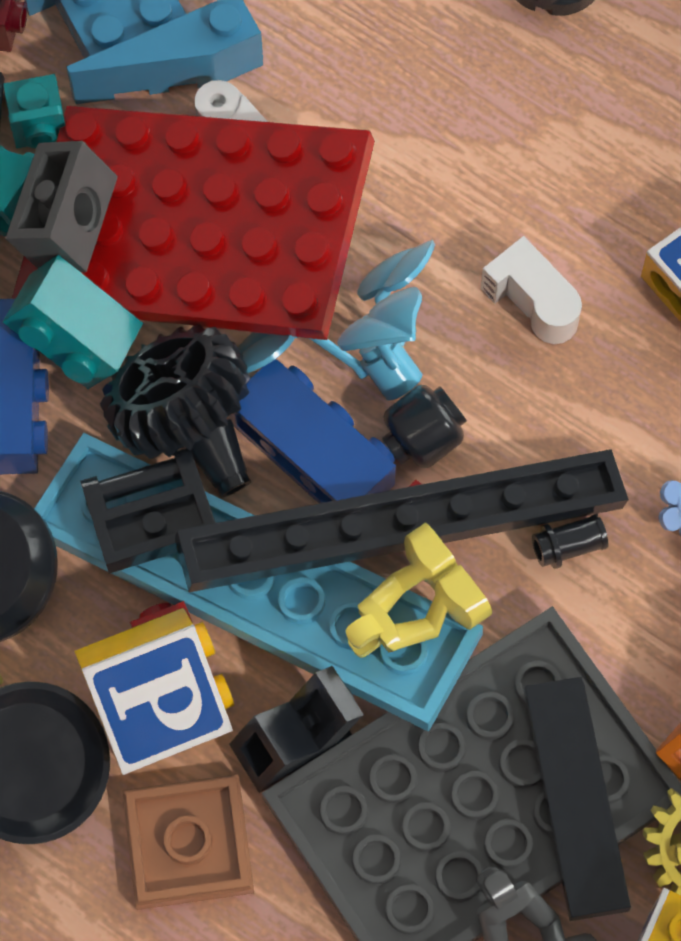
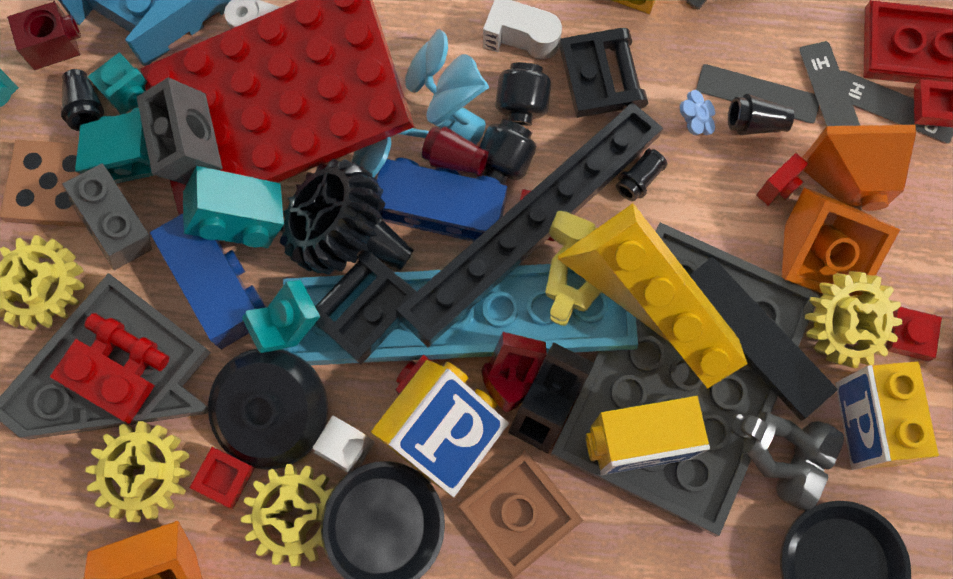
camera: 30 degrees left, 5 degrees up
(38, 650) = (343, 445): none -> white leg
(52, 478) = (284, 320): none -> teal bracket
(272, 673) = (513, 369): none -> dark red tile
(356, 391) = (453, 152): none -> dark red cone
(366, 823) = (647, 435): none -> yellow piece
(476, 653) = (645, 278): none -> yellow wedge
(487, 369) = (523, 93): none -> black head
(584, 388) = (590, 74): none -> black plate

